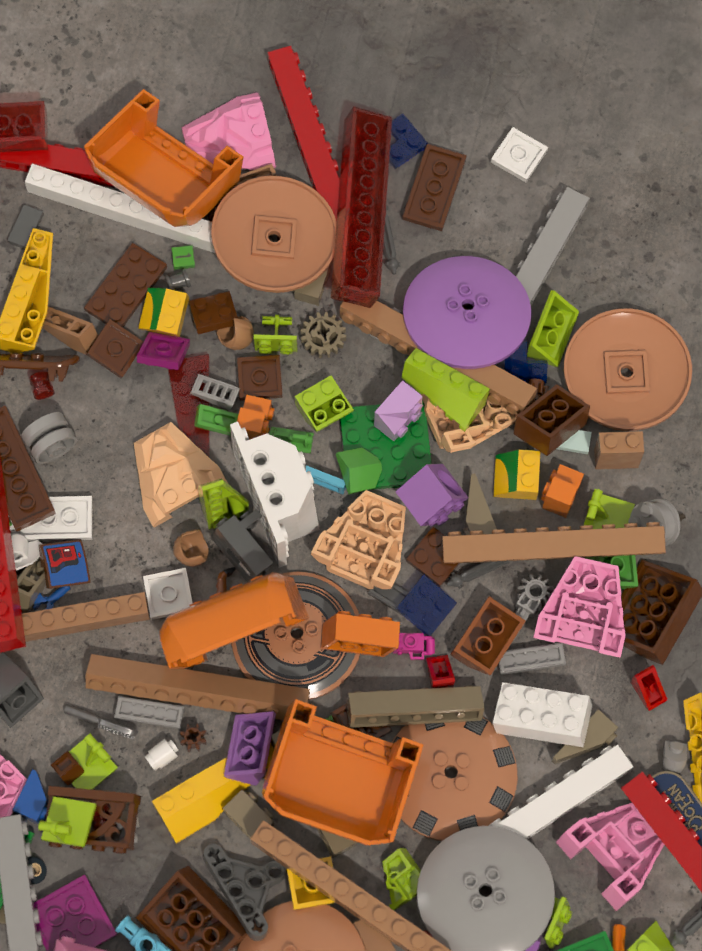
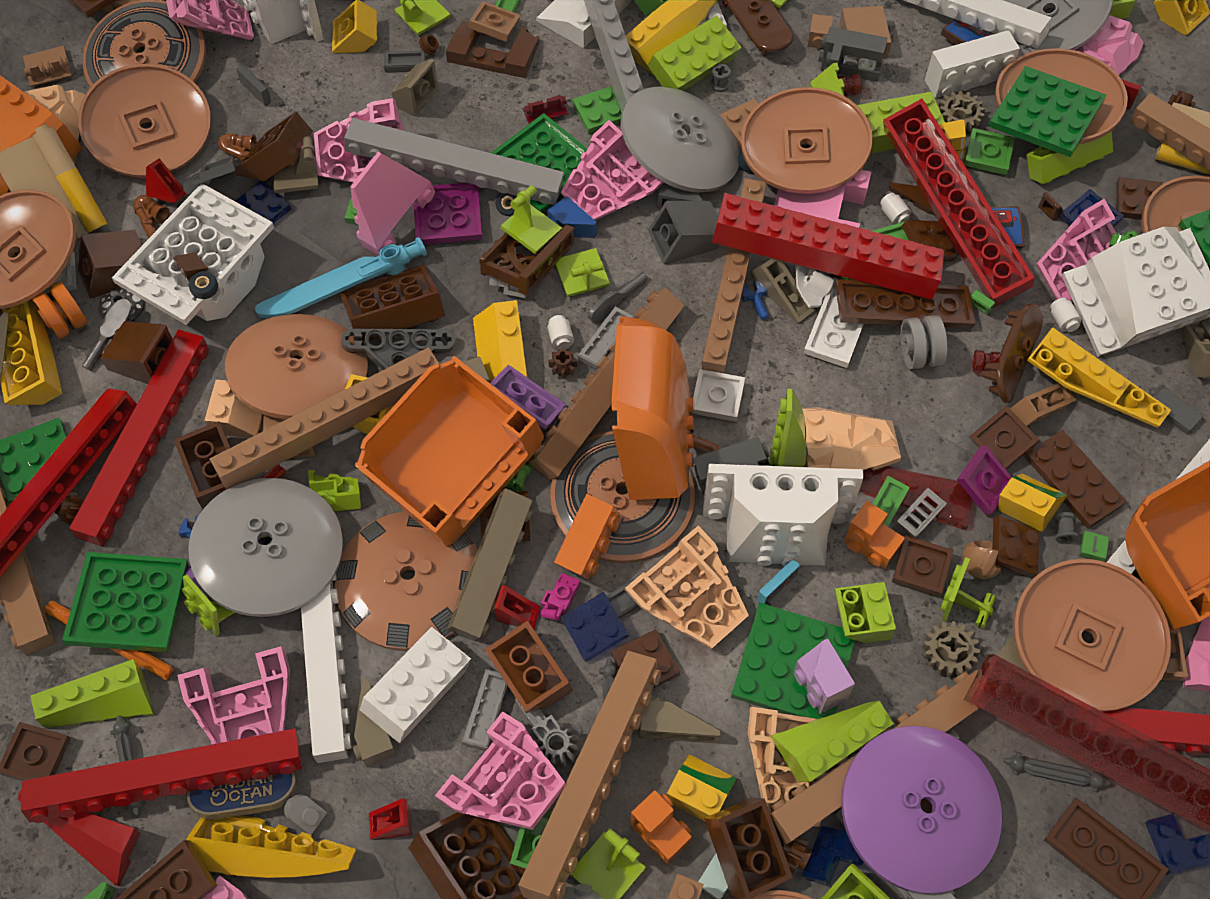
camera: 115 degrees right, 10 degrees down
(64, 564) = (786, 315): slope -> none
(67, 768) = (585, 252): reddish brown slope -> none
(191, 548) = (752, 424): medium nougat hair -> none
(300, 439) = (839, 568): bright green hinge -> none
(359, 469) = (774, 616): bright green slope -> none
(432, 495) = (710, 674): medium lavender brick -> none

